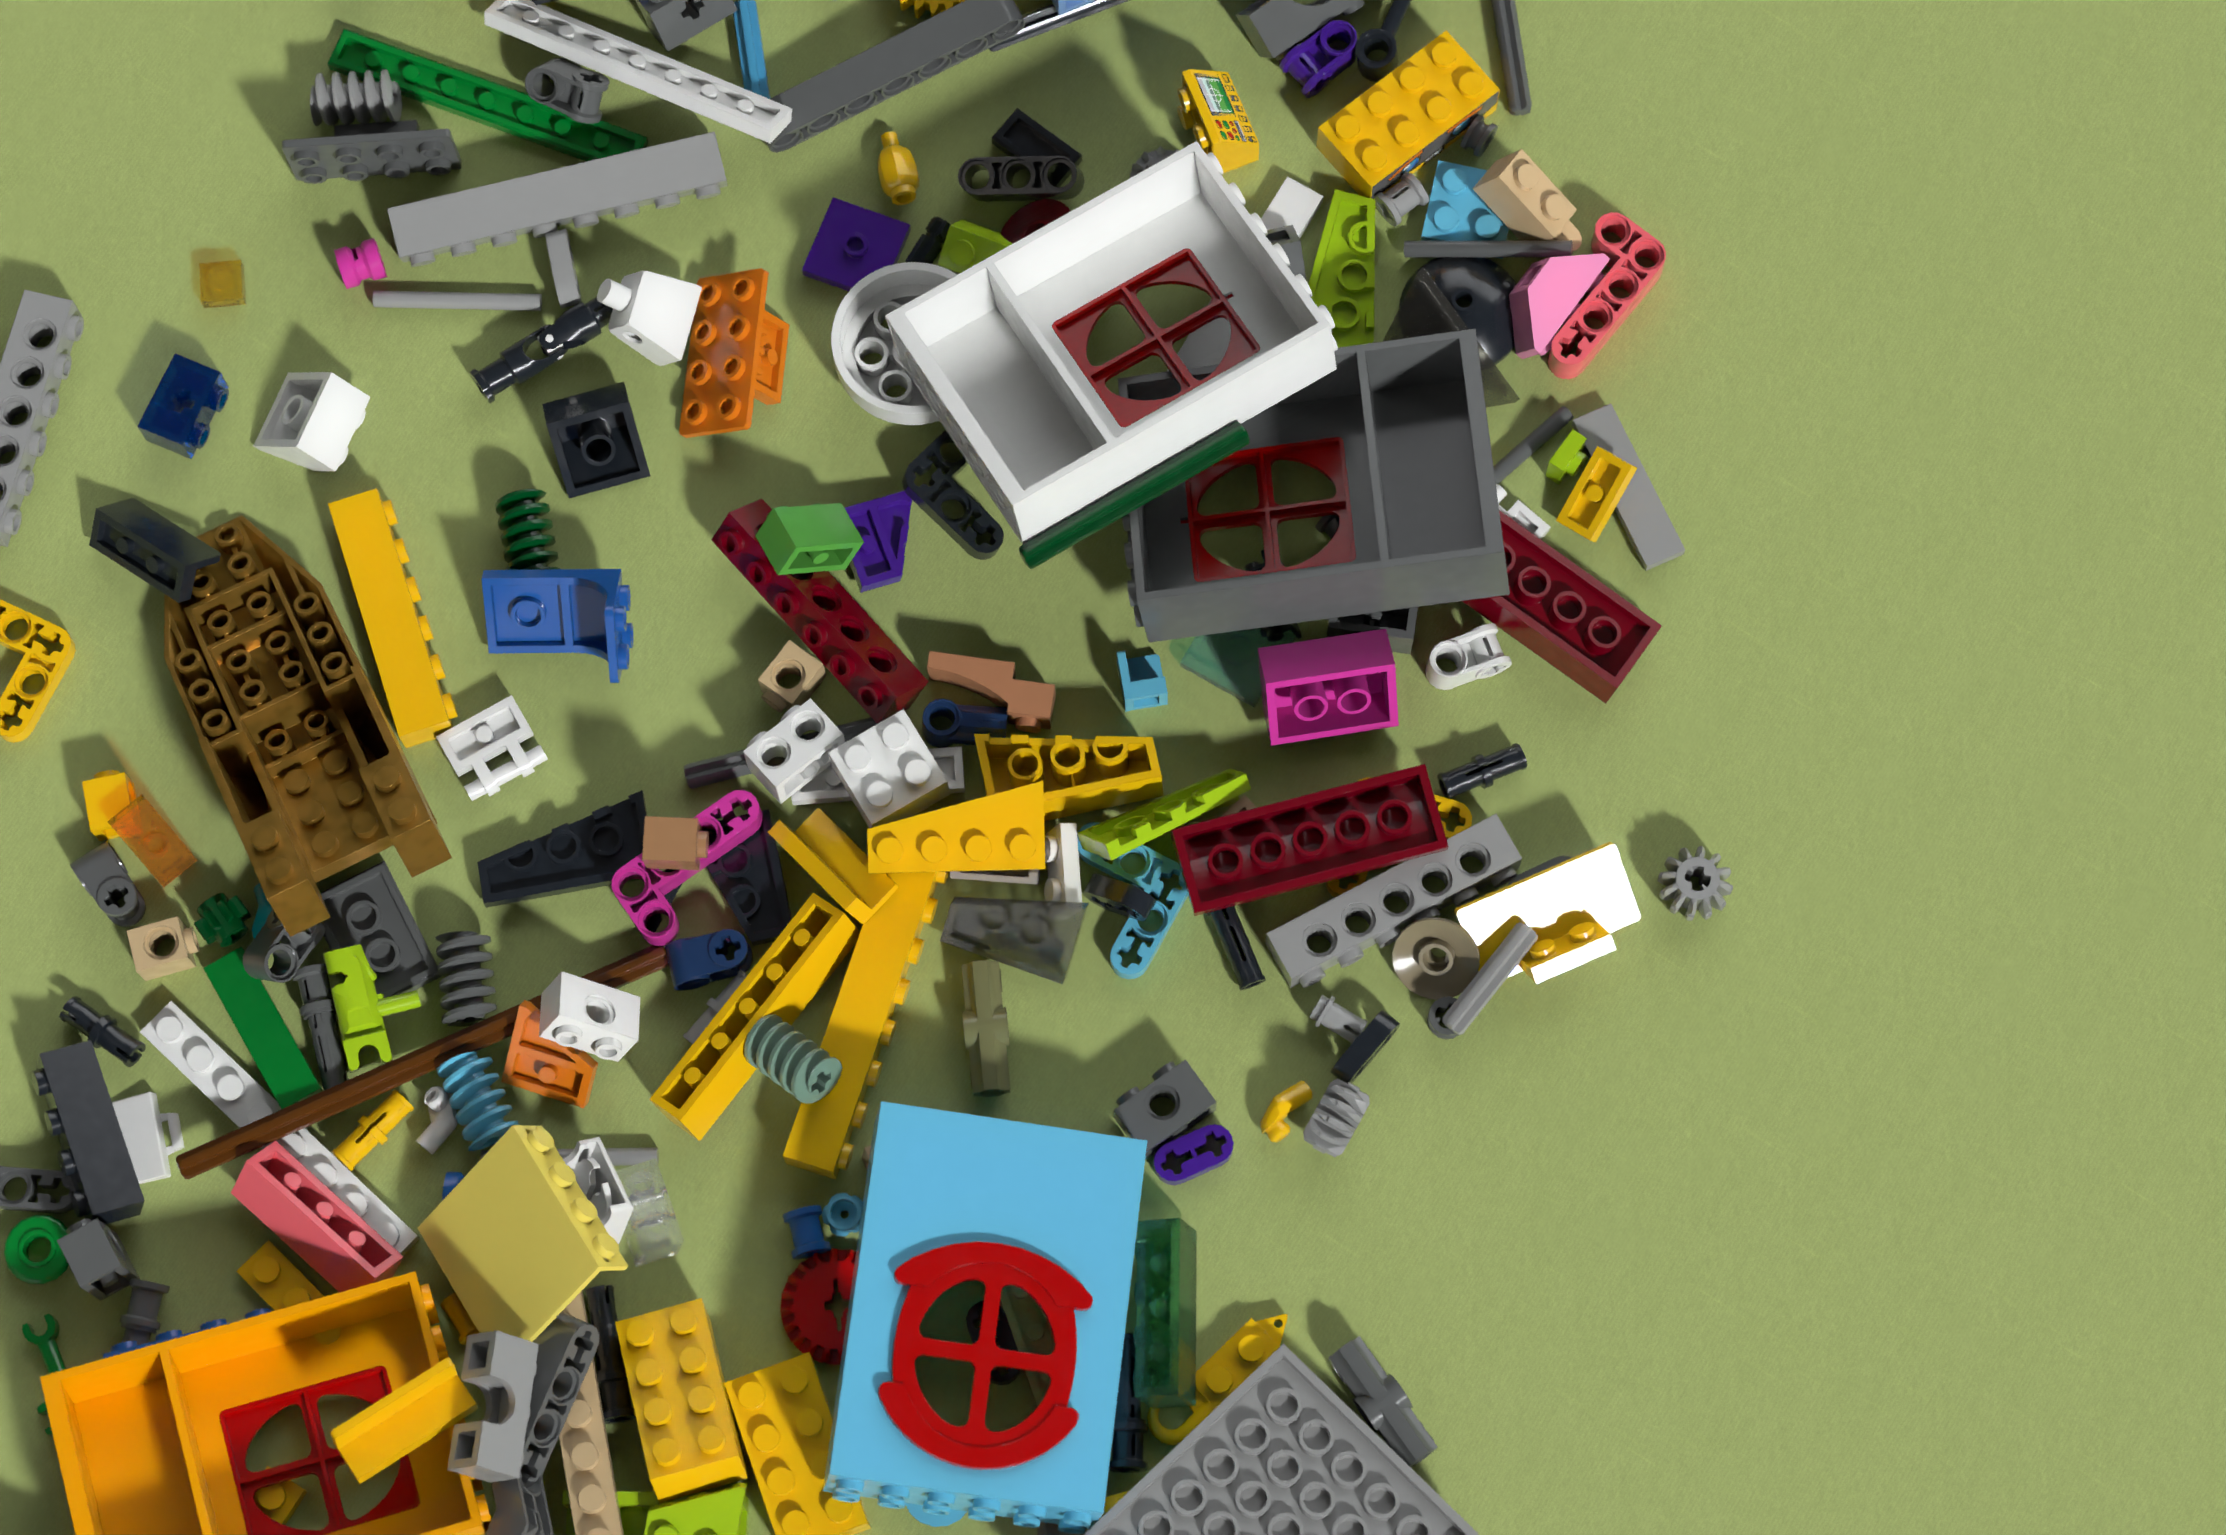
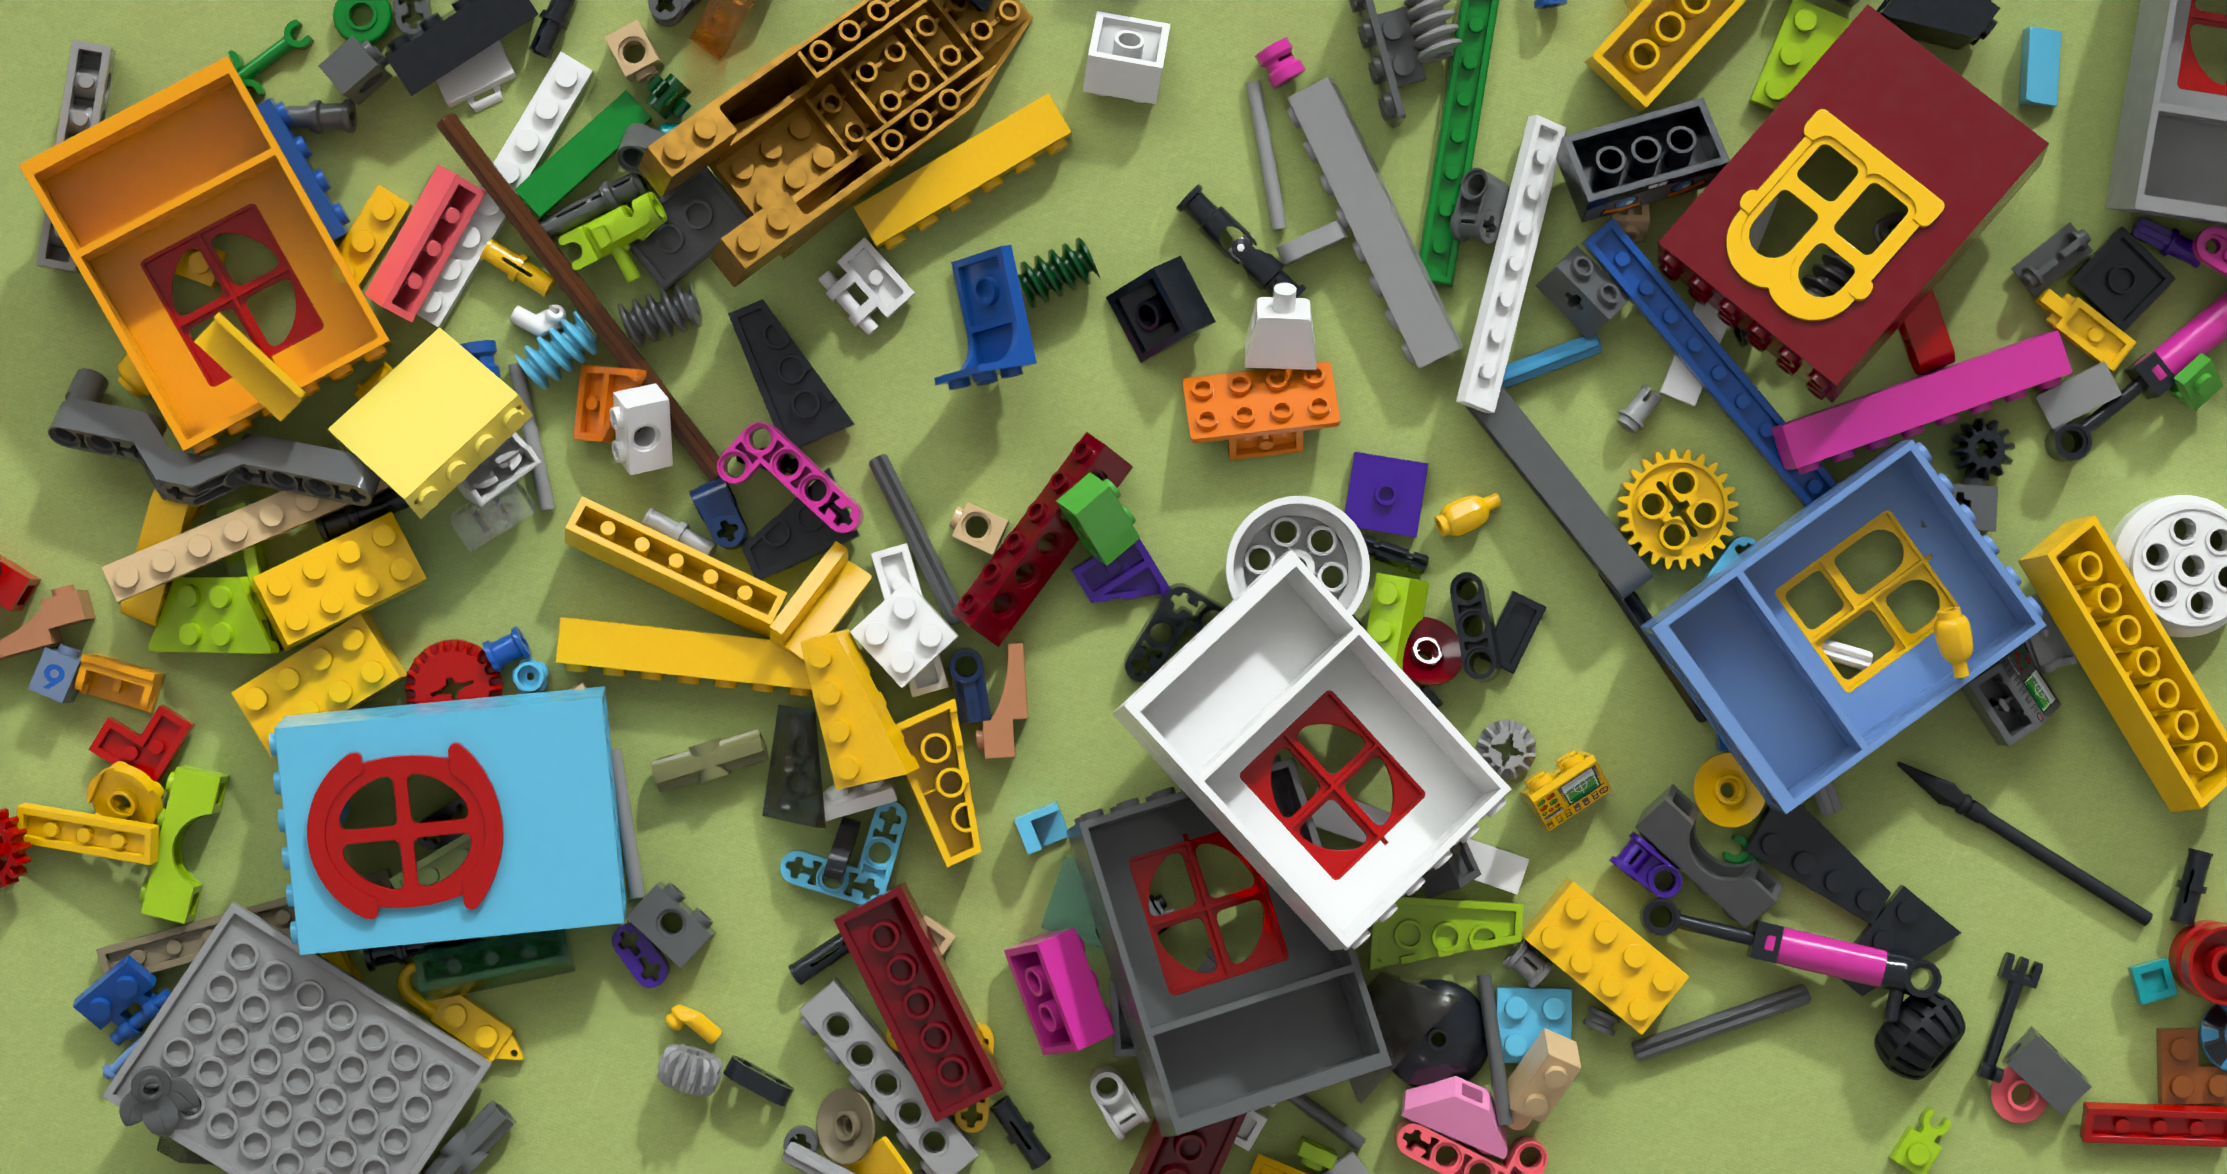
camera: 75 degrees right, 15 degrees up
(505, 1374) = (253, 445): light grey arch -> none
(674, 843) = (795, 469): medium nougat brick -> none
(791, 1059) = (634, 606): sand green piece -> none
(803, 757) = (904, 556): white brick -> none
(1134, 495) = (1176, 799): dark green axle -> none
(1159, 816) = (908, 863): lime wing -> none
(1337, 1019) = (779, 1052): light grey pin -> none

